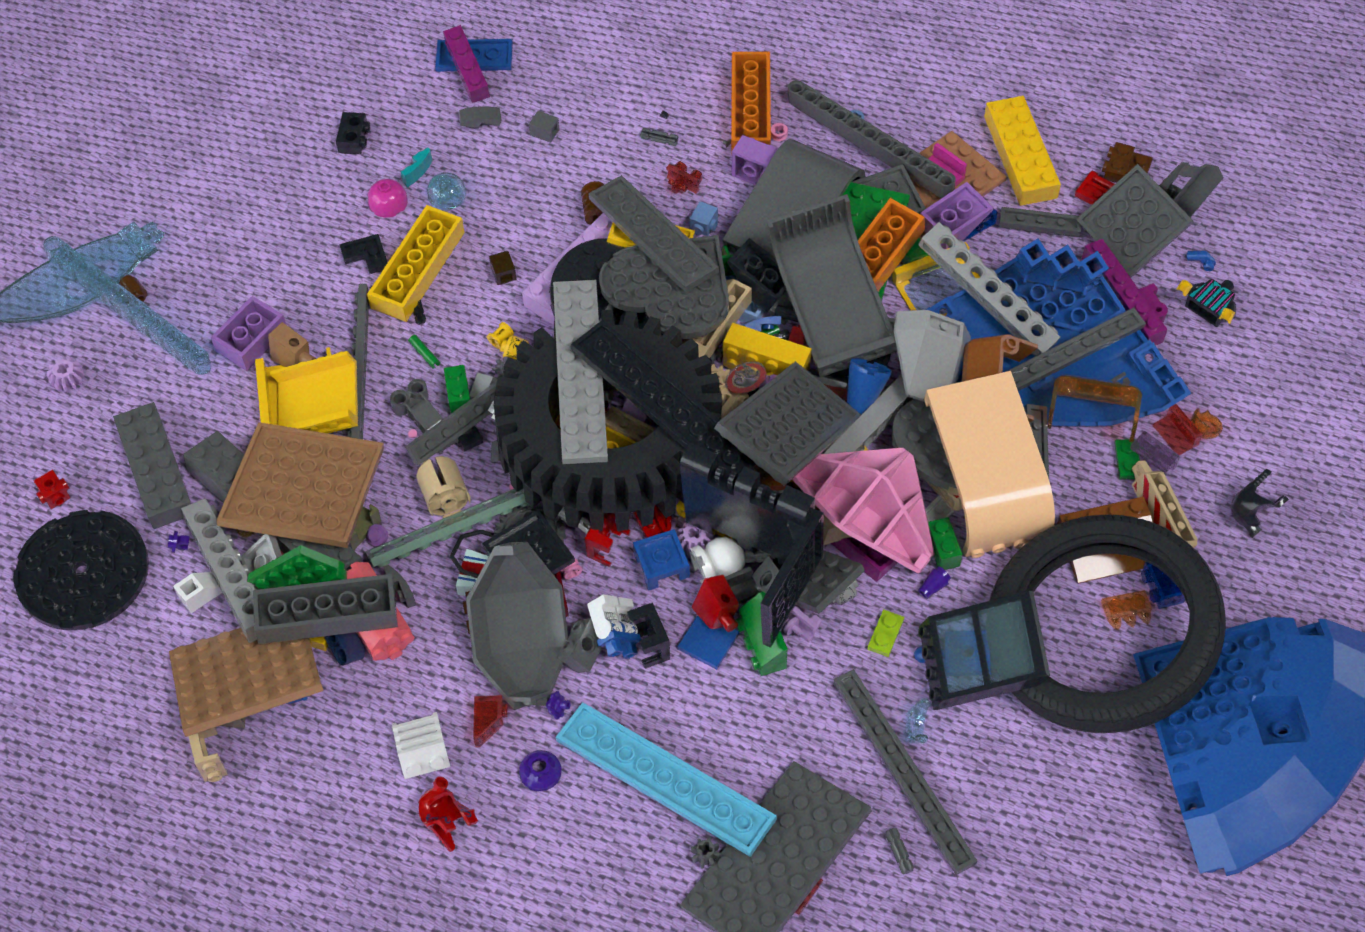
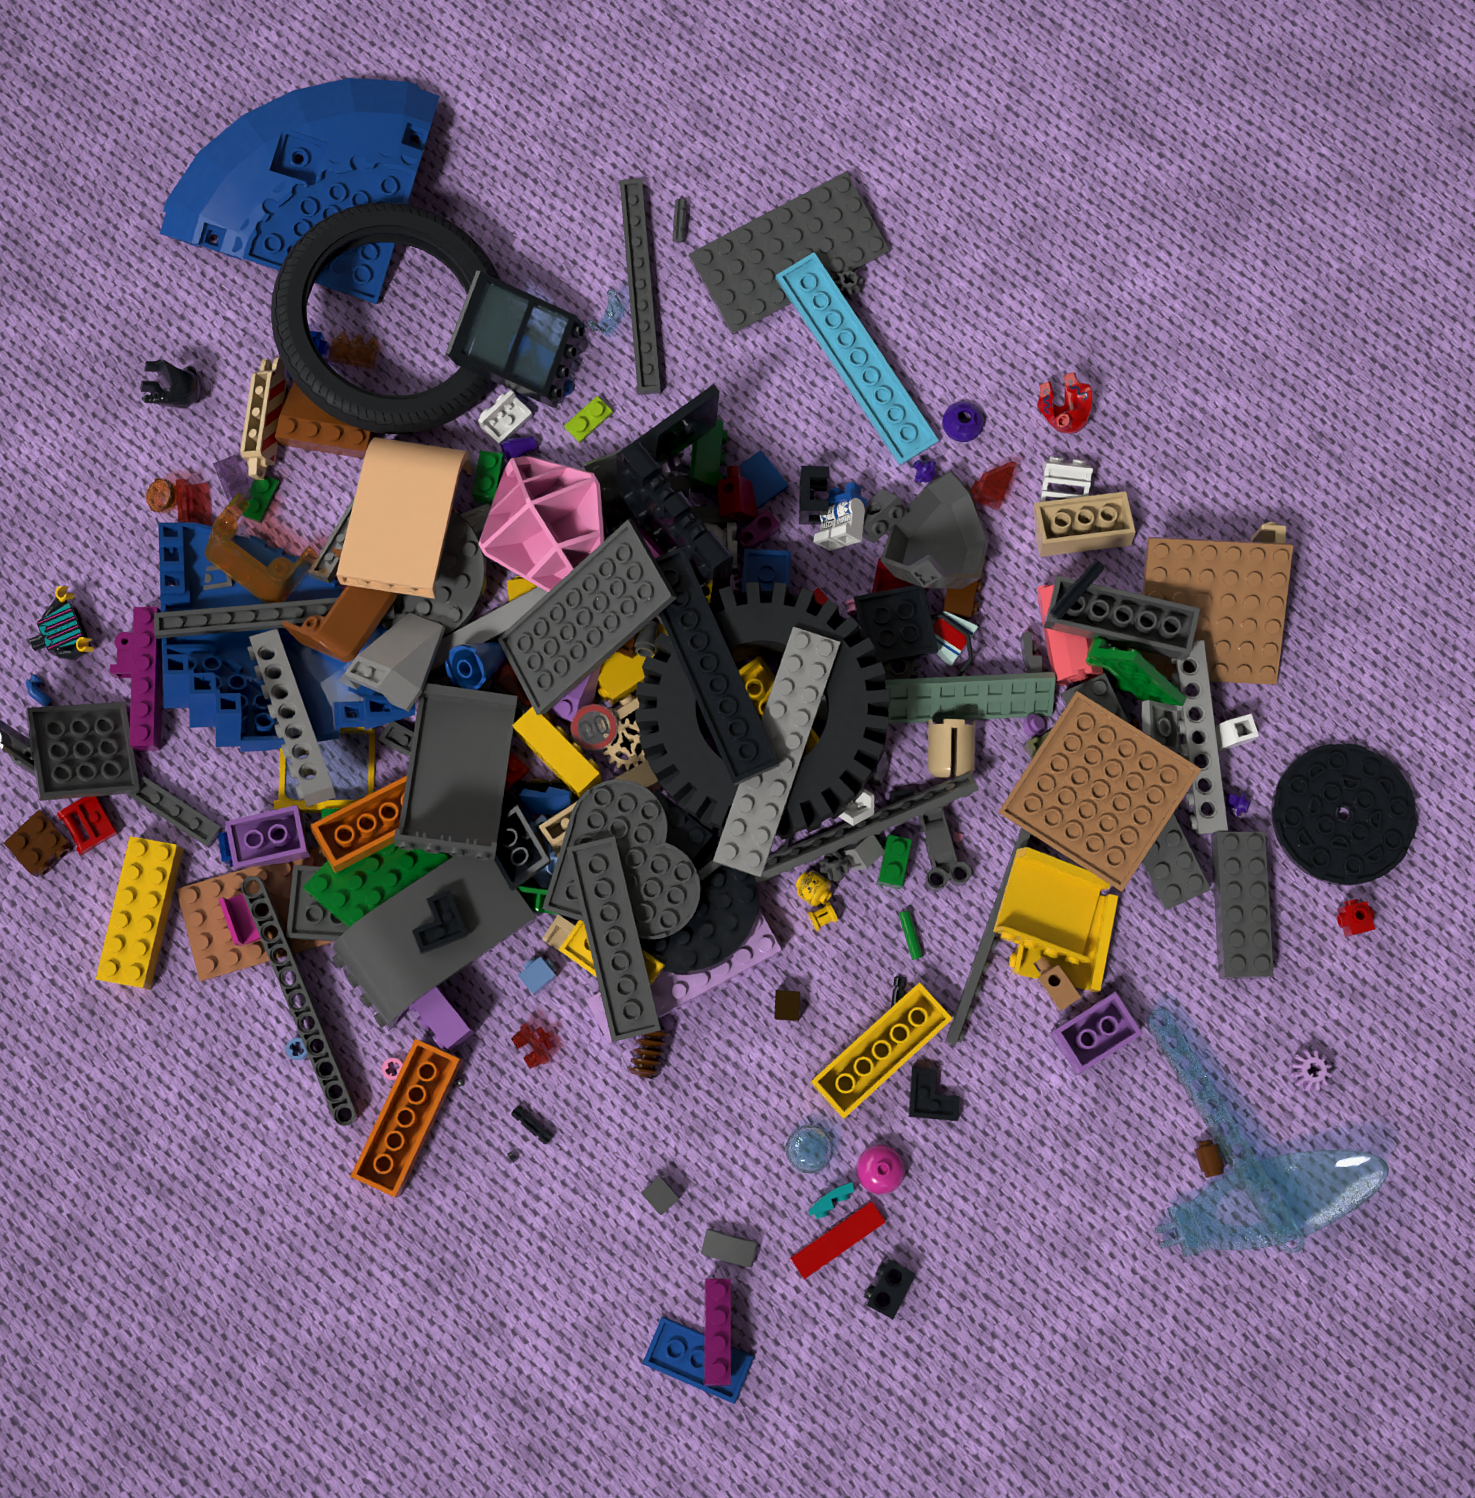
camera: 160 degrees left, 20 degrees up
(372, 603) = (1077, 589): none -> black axle
(390, 710) = (1083, 524): none -> tan slope
(402, 150) = (837, 1240): none -> red tile
(684, 595) = (758, 531): none -> magenta leg
(784, 192) = (446, 926): none -> black plate
(959, 594) = (504, 417): none -> white bracket

